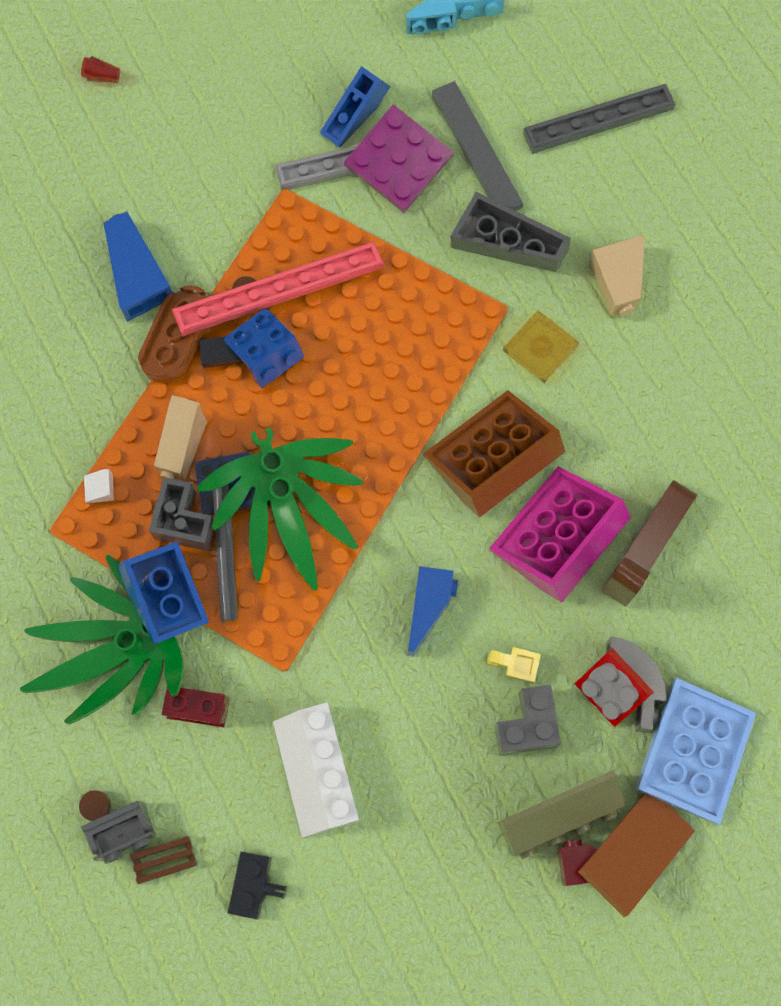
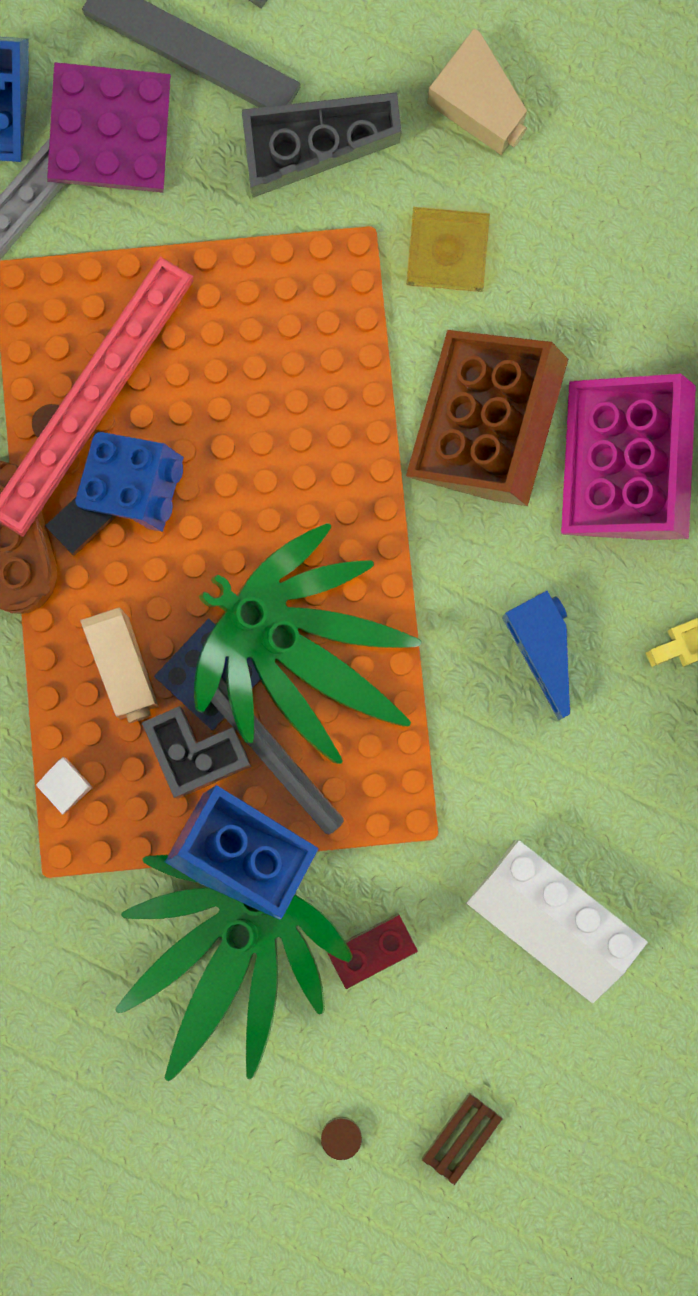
camera: 40 degrees left, 10 degrees up
(119, 831) = (393, 1146): dark grey hinge -> none
(252, 886) = (579, 1093): black plate -> none

